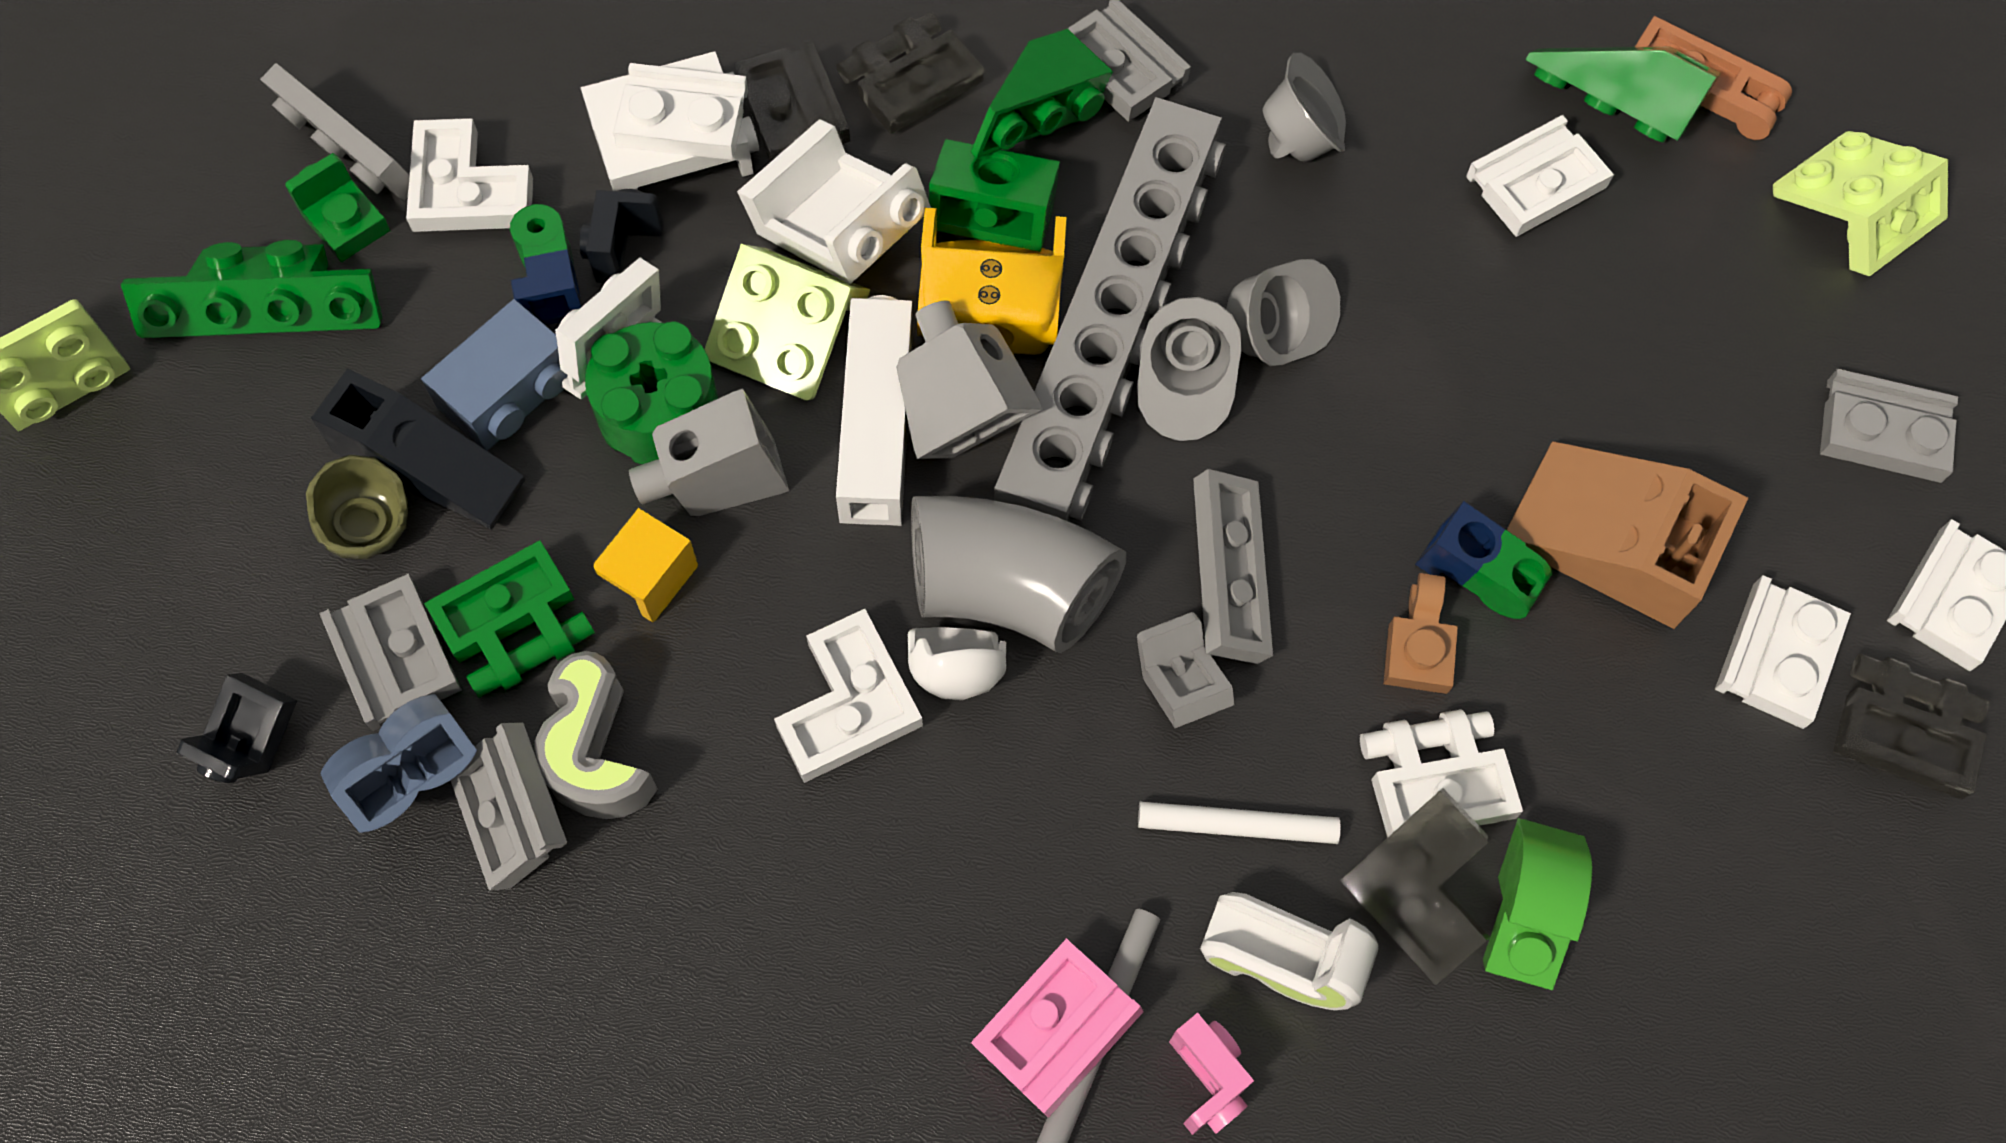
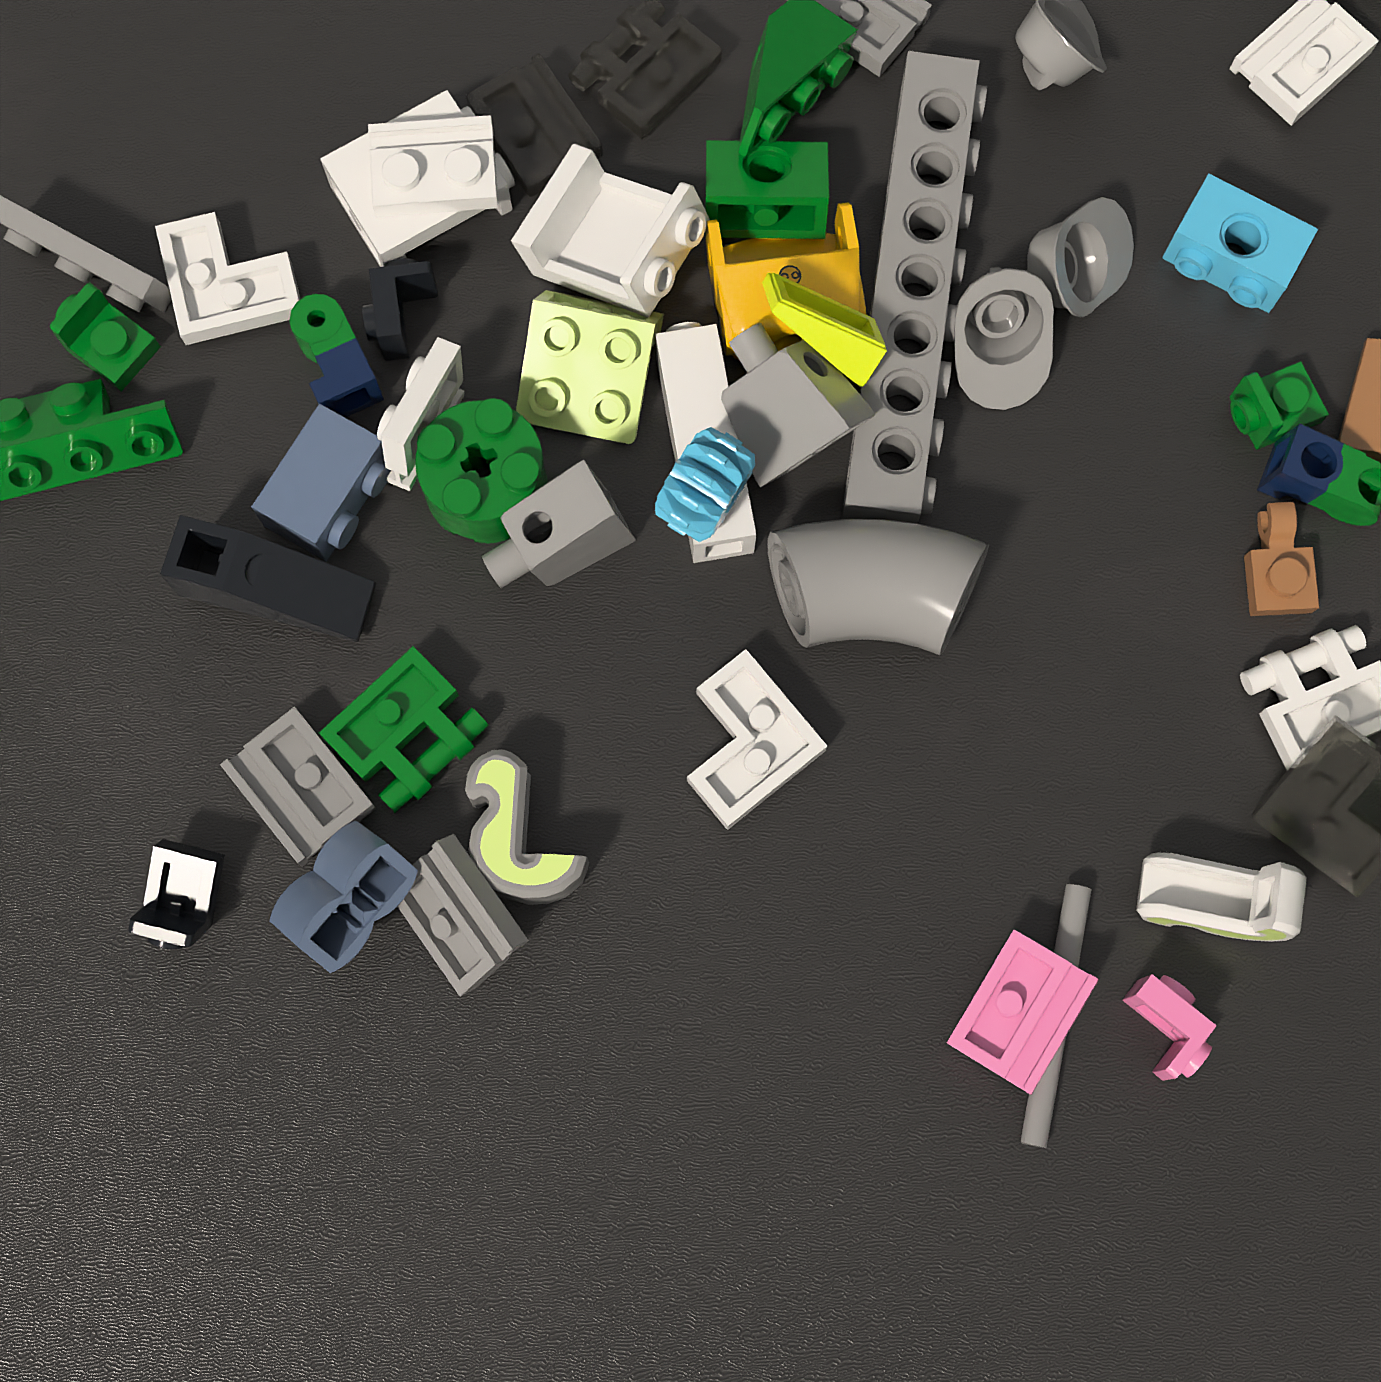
camera: 10 degrees left, 10 degrees up
(357, 507) = (225, 650): olive hair -> none
(647, 563) = (523, 646): yellow panel -> none
(854, 434) = (704, 484): none -> medium azure gear
(956, 661) = (846, 681): white hair -> none
(1018, 322) = (833, 329): none -> neon yellow slope
(1181, 672) = (1063, 648): light grey bracket -> none
(1232, 567) = (1087, 531): light grey plate -> none
(1239, 822) = (1143, 781): white bar -> none
(1434, 301) = (1268, 235): none -> medium azure brick
(1444, 482) = (1275, 404): none -> green bracket

